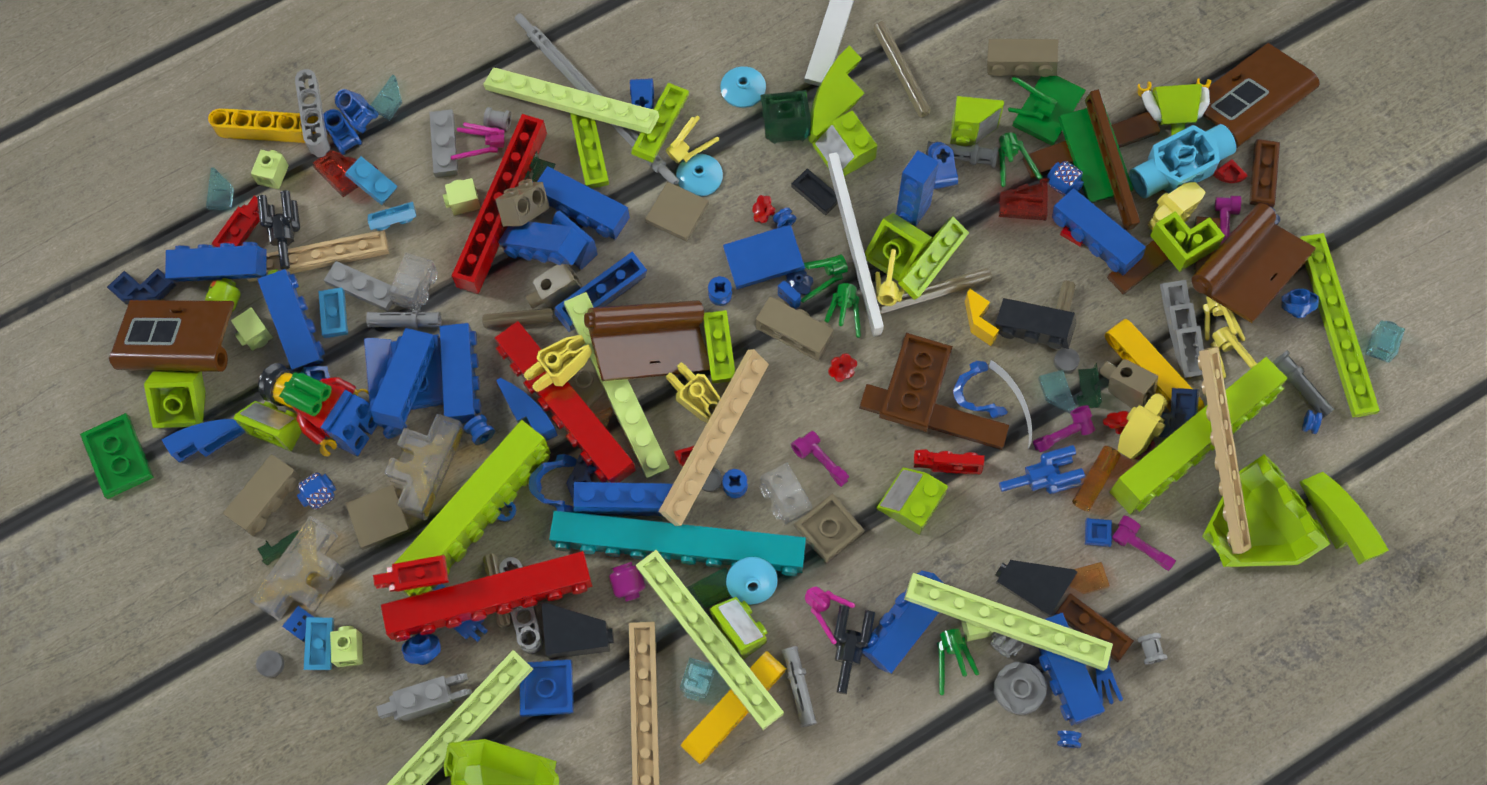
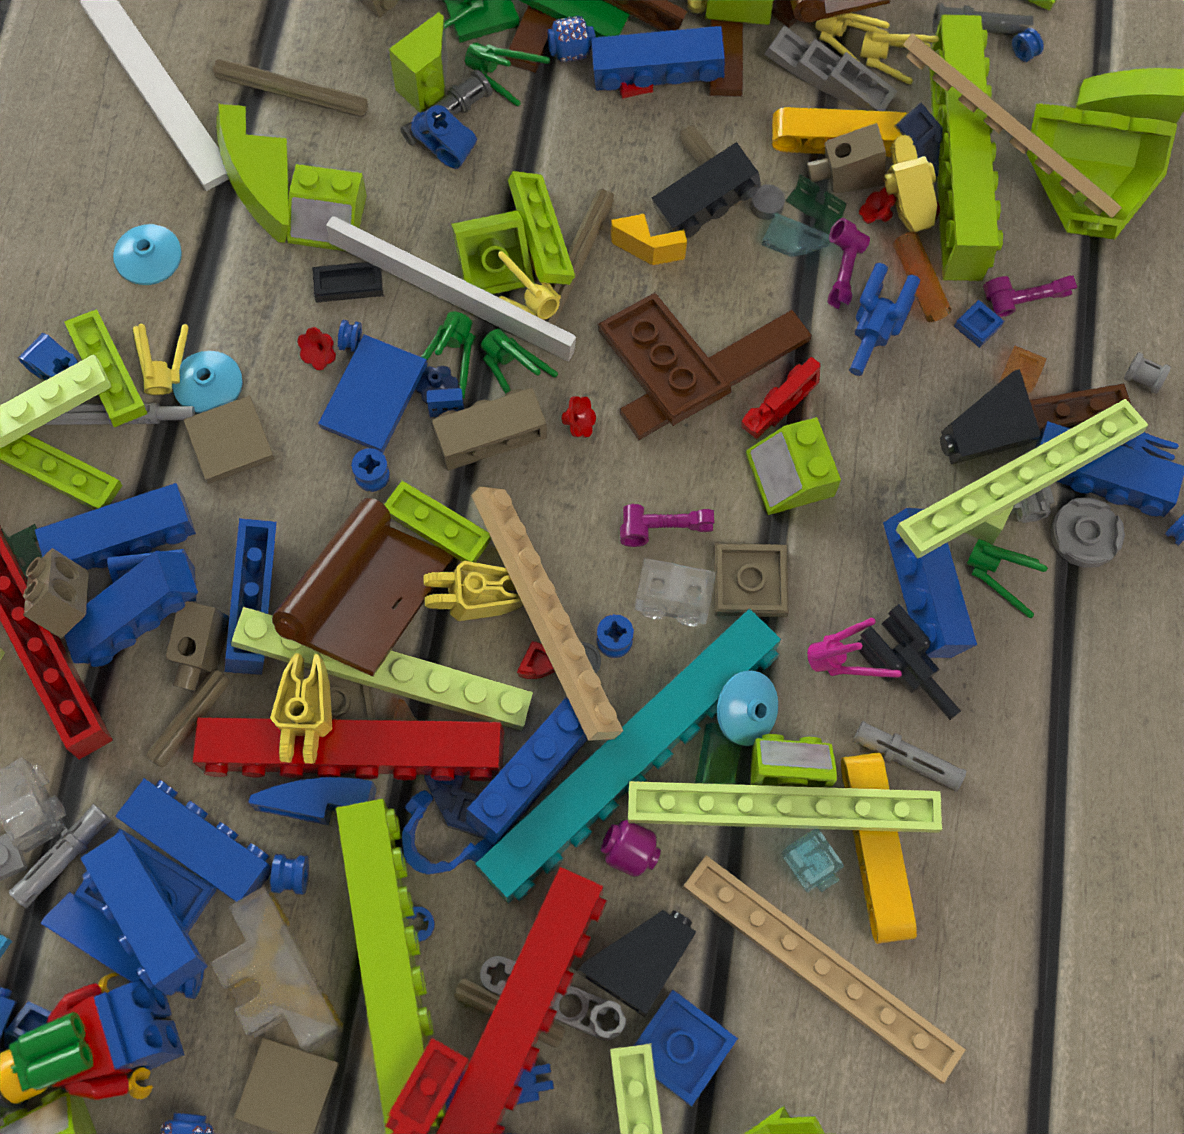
camera: 55 degrees left, 0 degrees up
(786, 116) = (232, 236): clear green slope -> none
(917, 188) = (457, 166): blue brick -> none
(976, 368) = (701, 288): blue helmet -> none
(1016, 390) = (772, 275): white sticker -> none
(1025, 202) = (559, 96): clear red wing -> none

